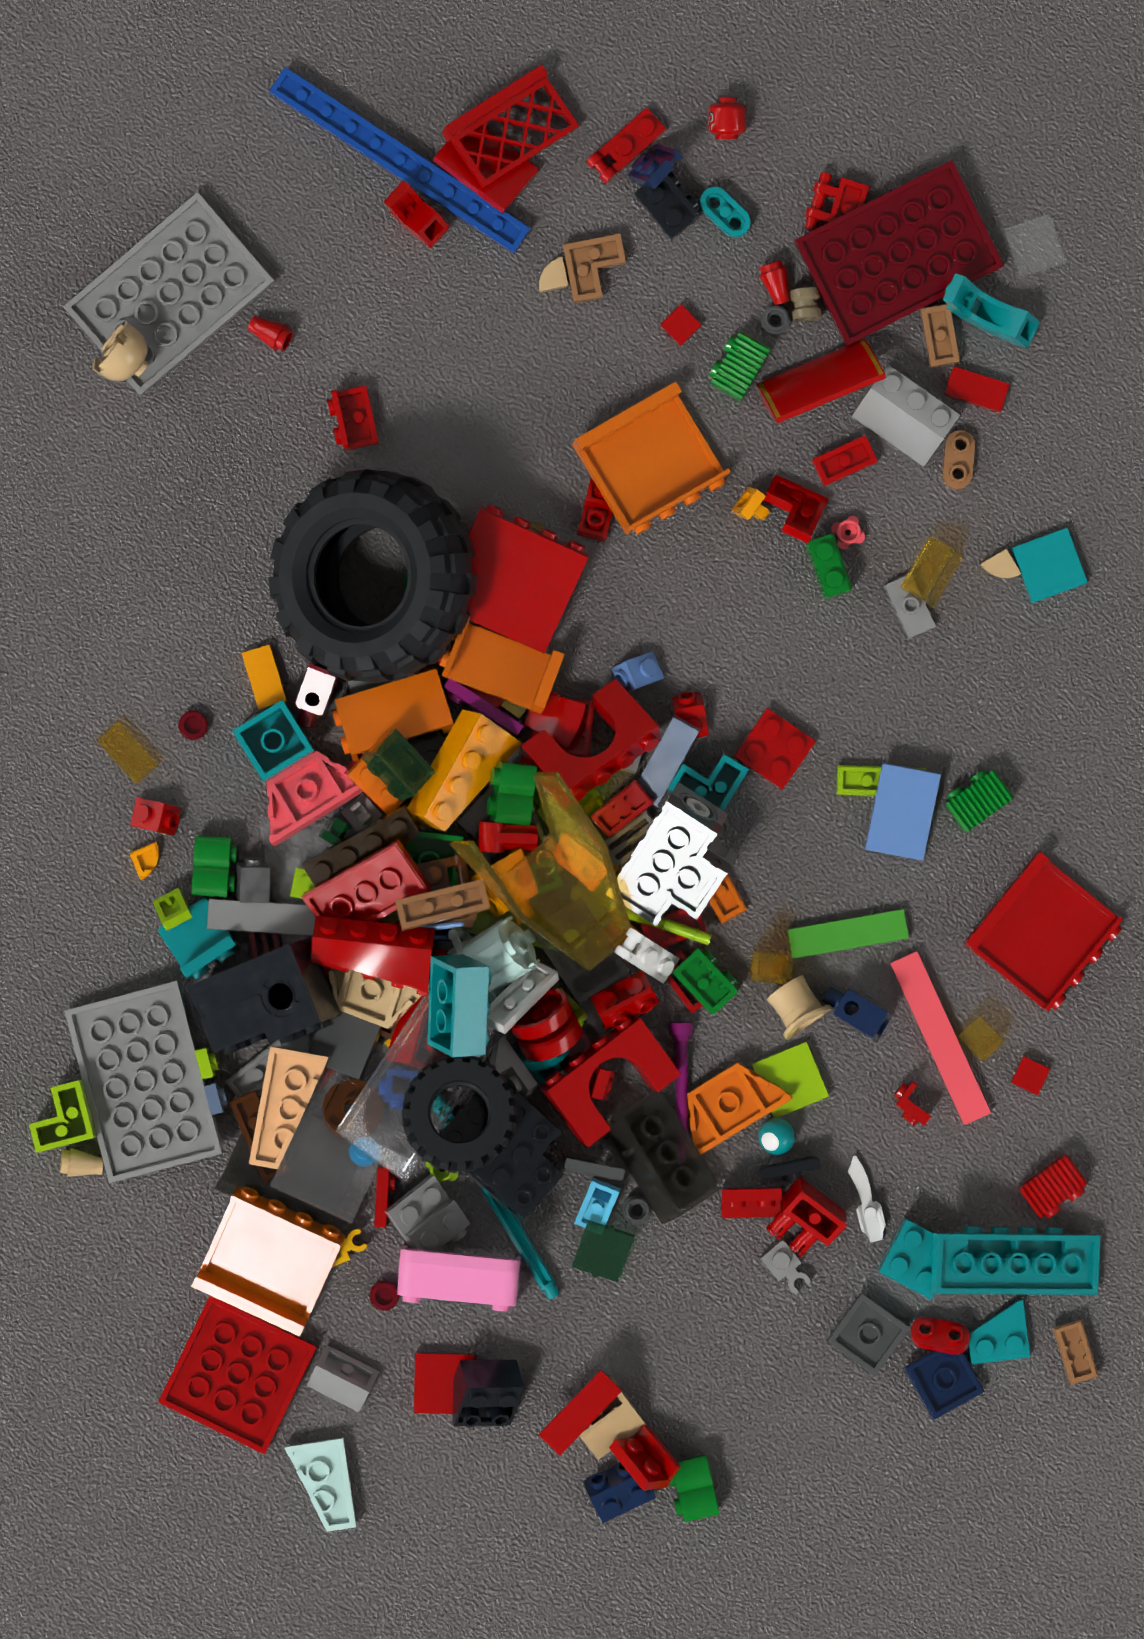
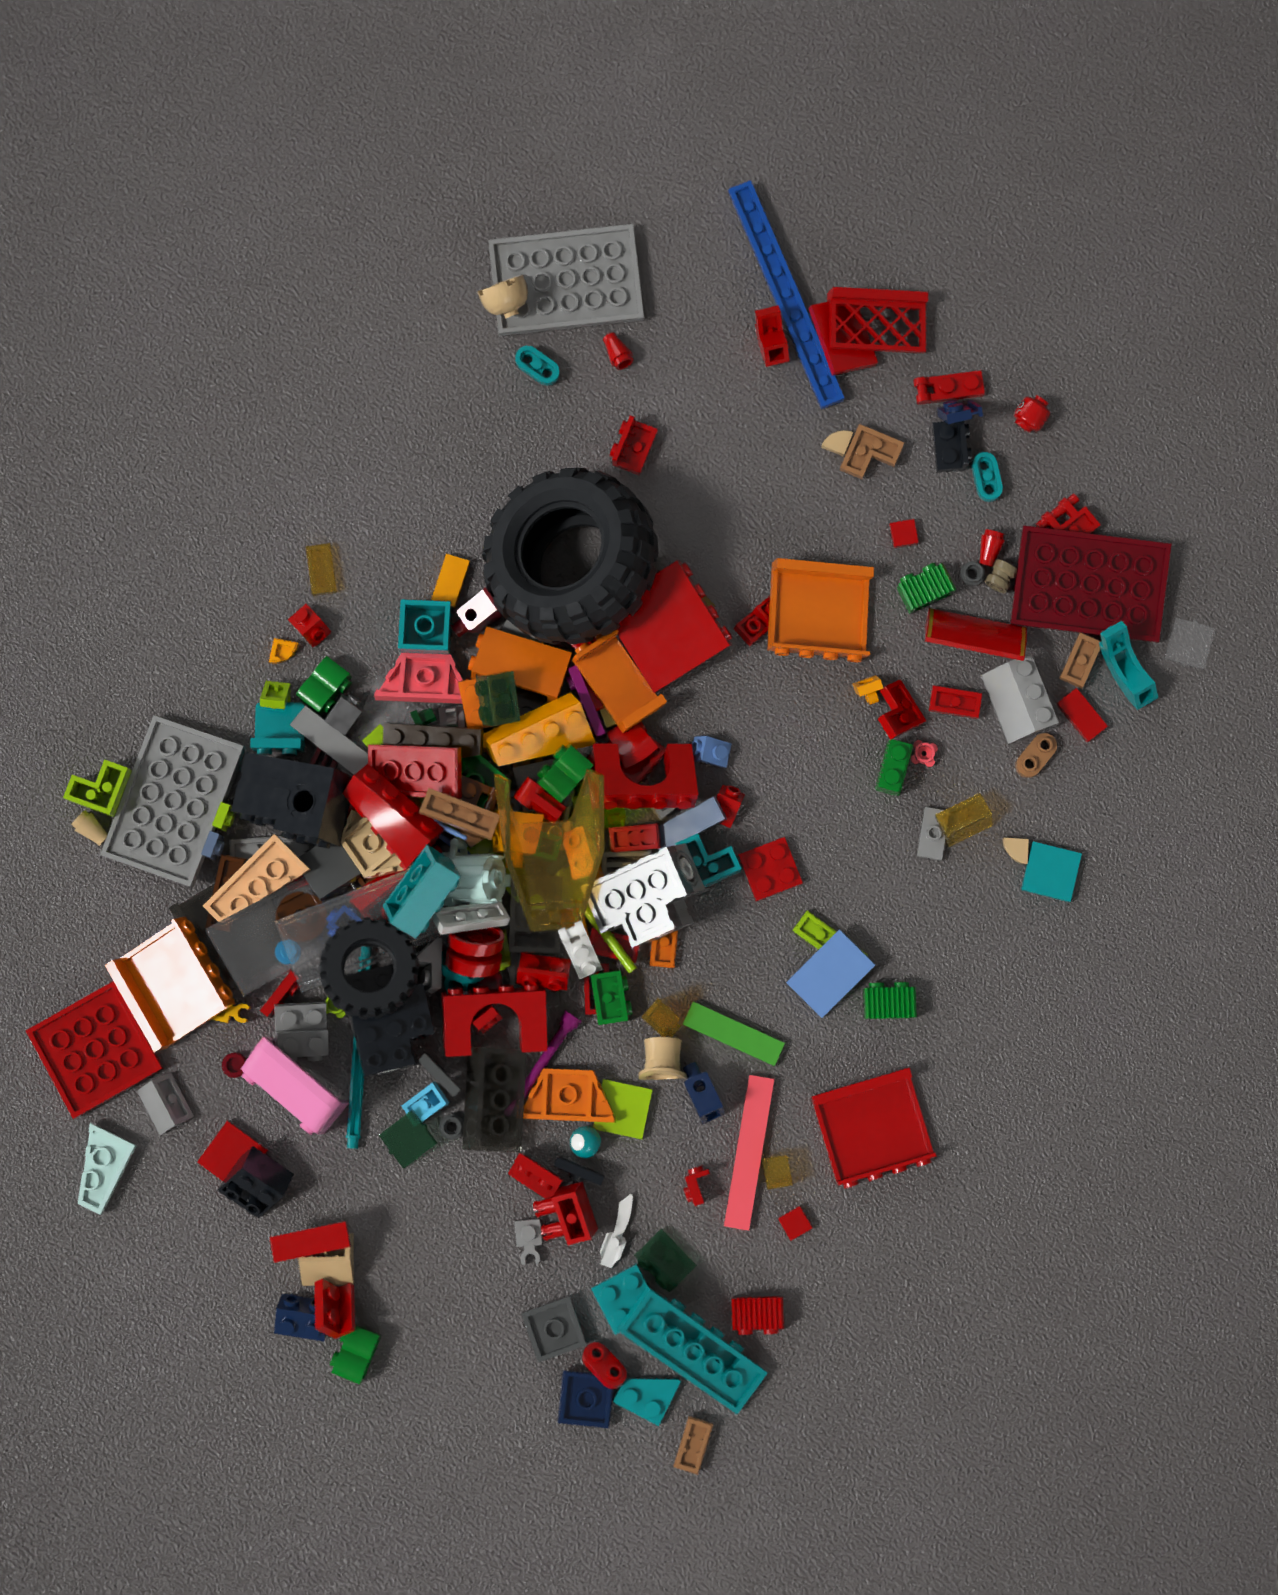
camera: 40 degrees right, 5 degrees down
(193, 725) = (379, 581): dark red tile -> none
(201, 401) = (539, 364): none -> teal plate
(930, 1197) = (664, 1261): none -> clear green bracket

